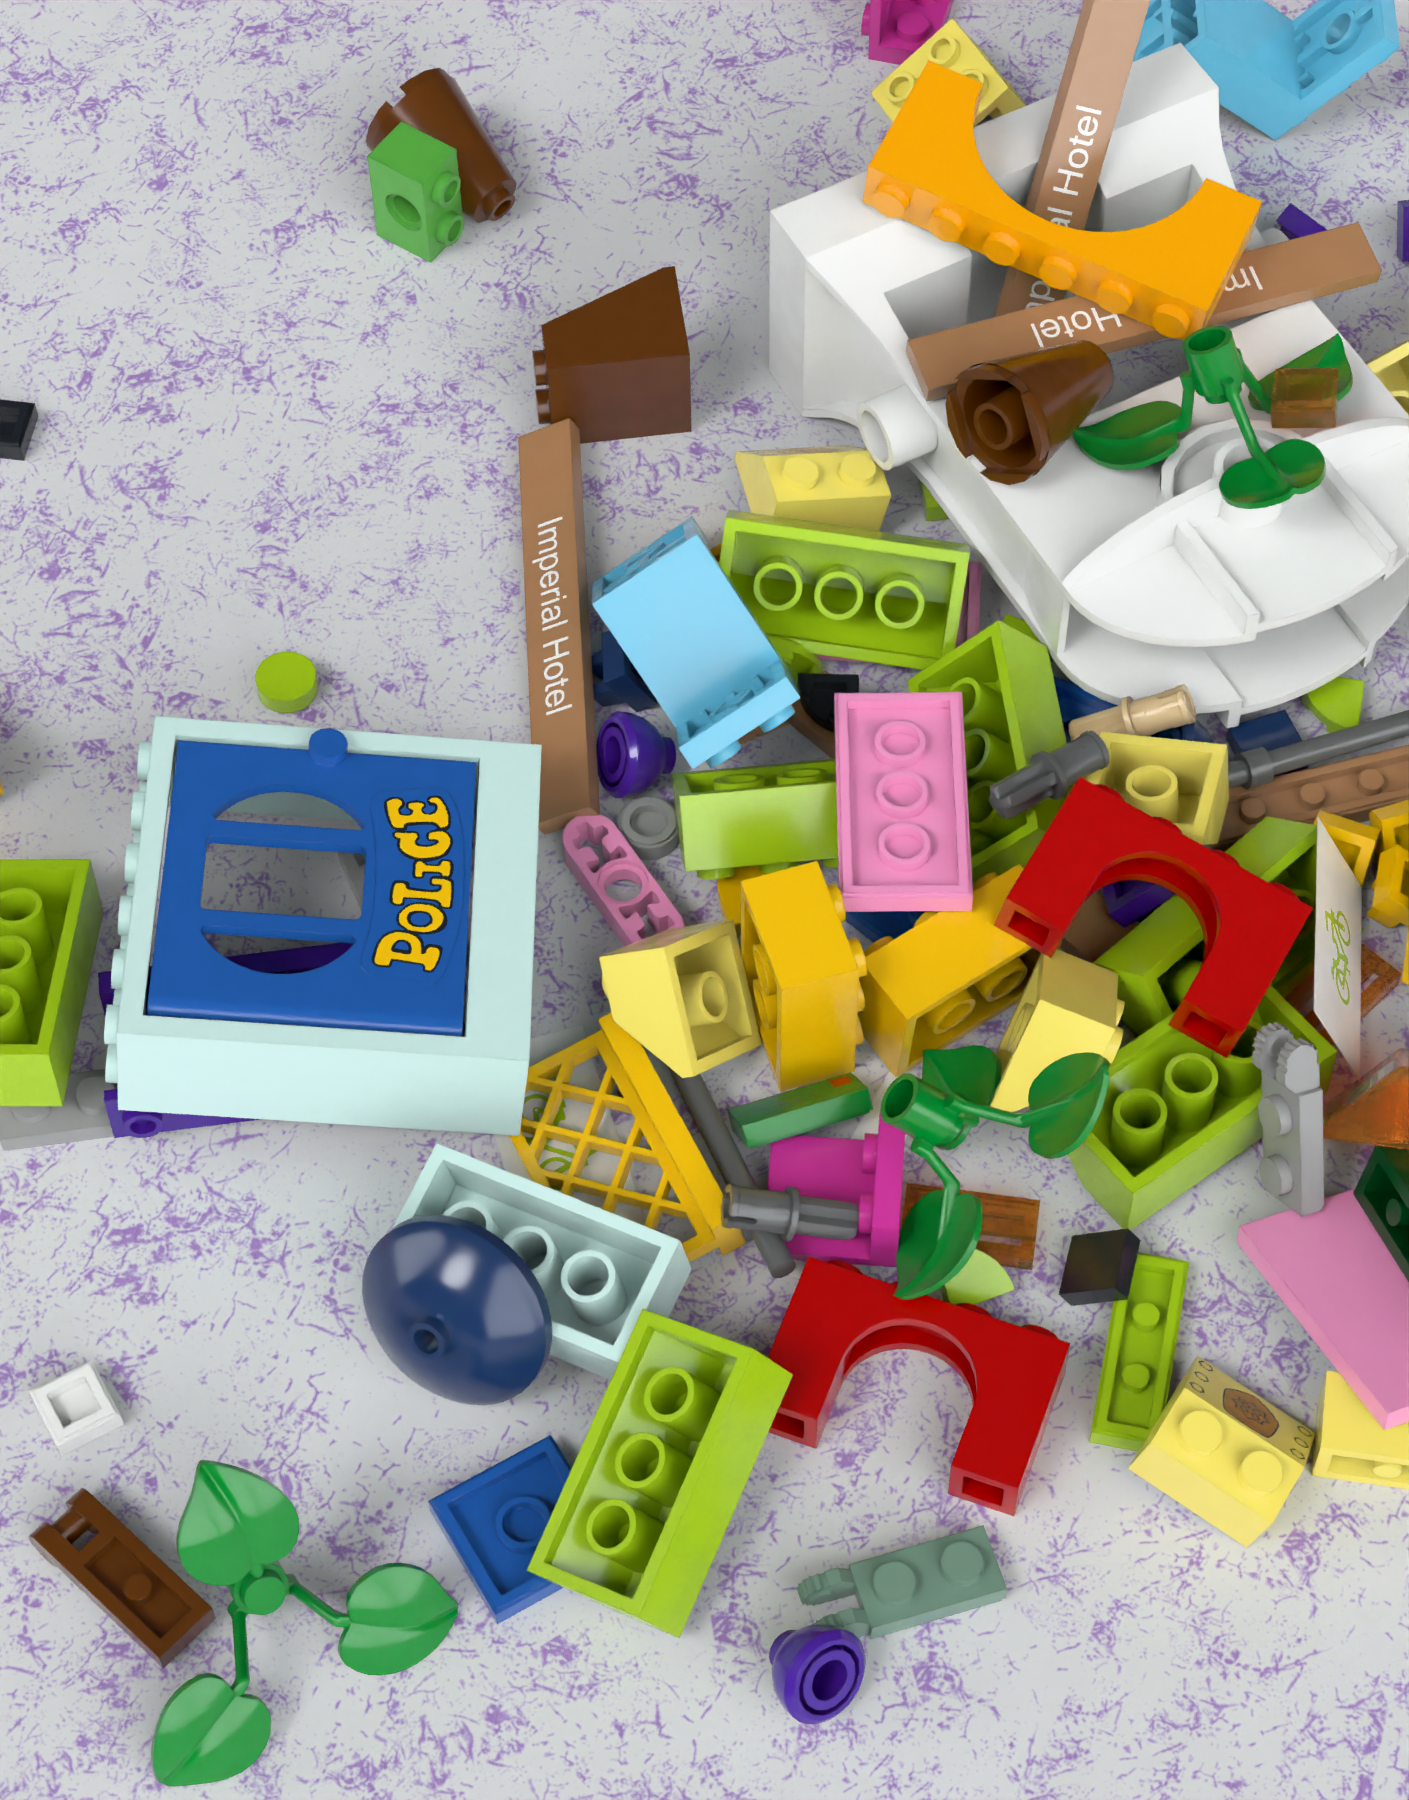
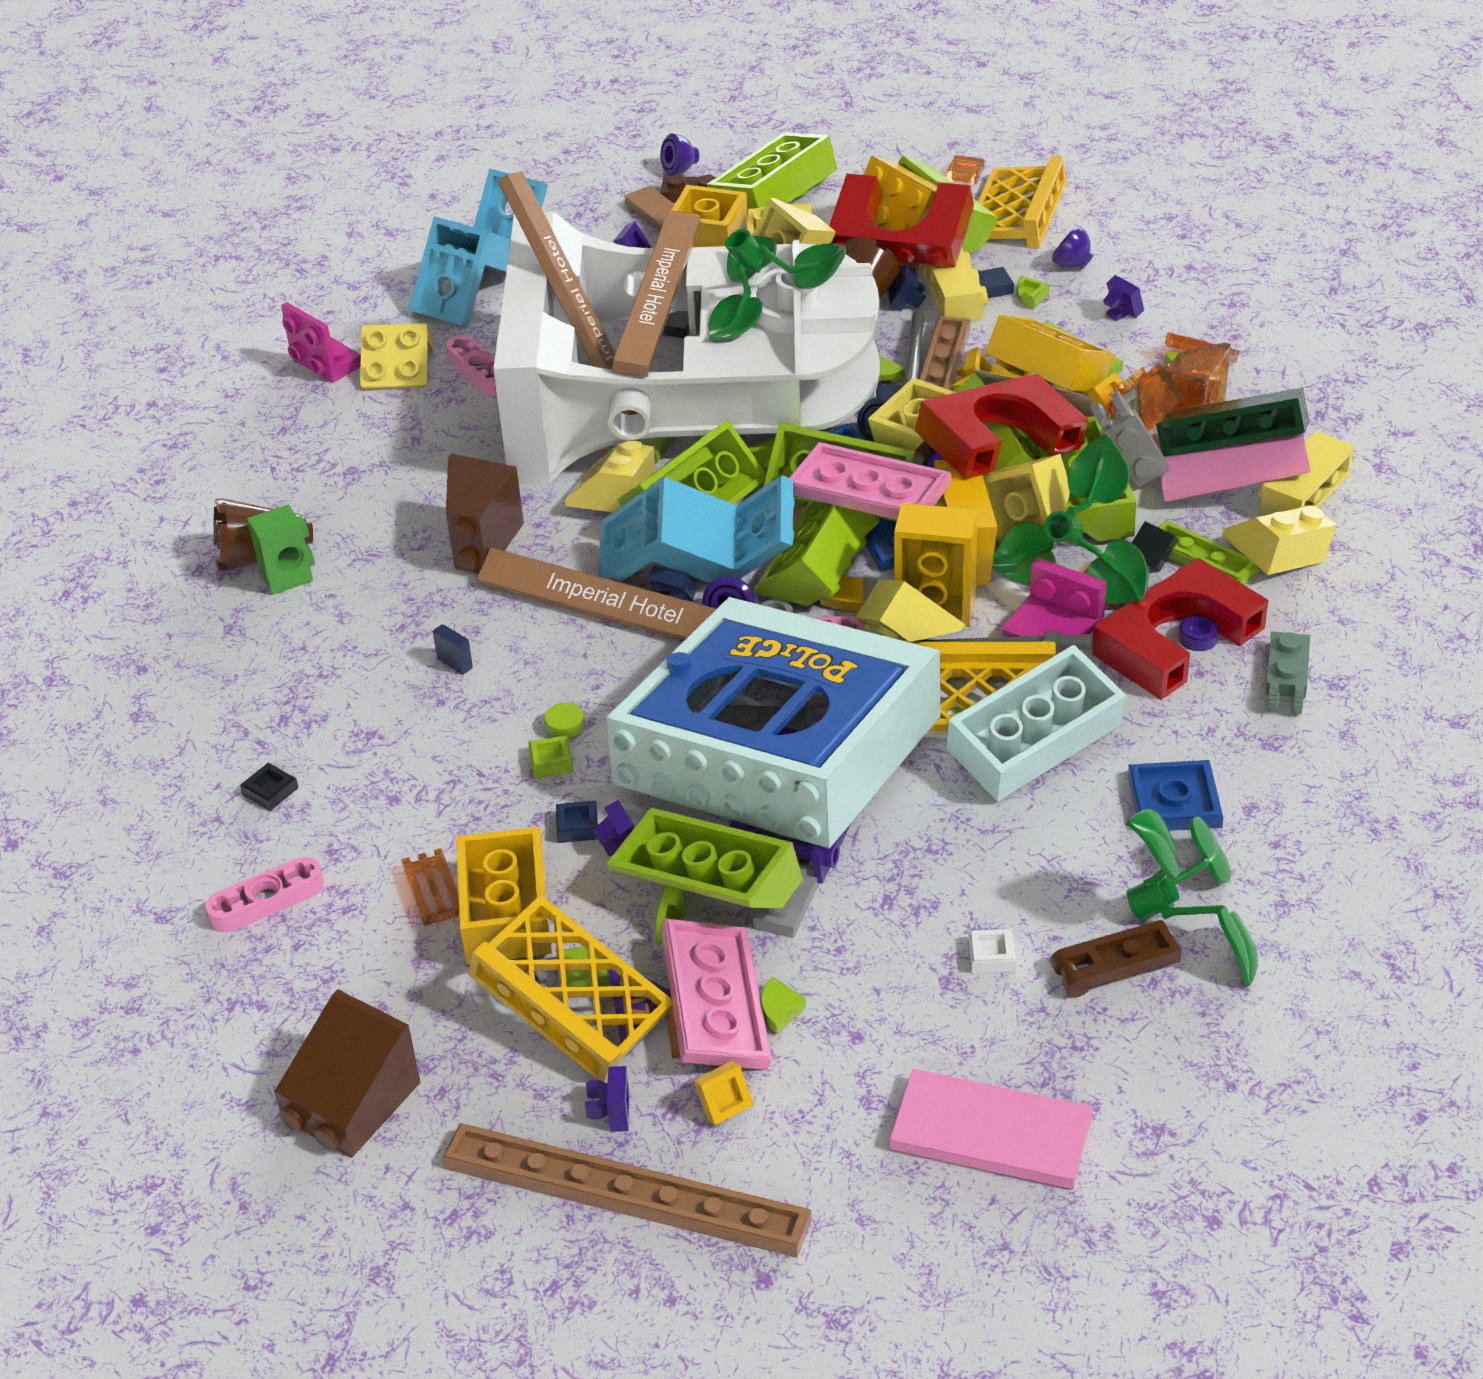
camera: 60 degrees left, 15 degrees down
(88, 838) = (614, 828): none -> dark purple tile
(96, 793) = (576, 821): none -> dark blue tile
(210, 696) = (550, 756): none -> lime tile
(347, 484) = (452, 649): none -> dark blue tile
(457, 1310) = (1036, 746): dark blue dish -> none
(661, 1471) = (1193, 709): lime slope -> none
(788, 1213) = (1067, 620): dark grey axle -> none
(800, 1110) = (995, 610): green tile -> none
(816, 1671) = (1319, 710): dark purple brick -> none
(932, 1420) = (1198, 633): none -> dark purple tile
(1026, 406) = (698, 337): reddish brown cone -> none
(1049, 775) = (890, 431): dark grey axle -> none
(1140, 716) = (861, 410): tan axle -> none
(1153, 273) = (539, 300): light orange arch -> none
(1305, 398) = (776, 244): clear orange tile -> none

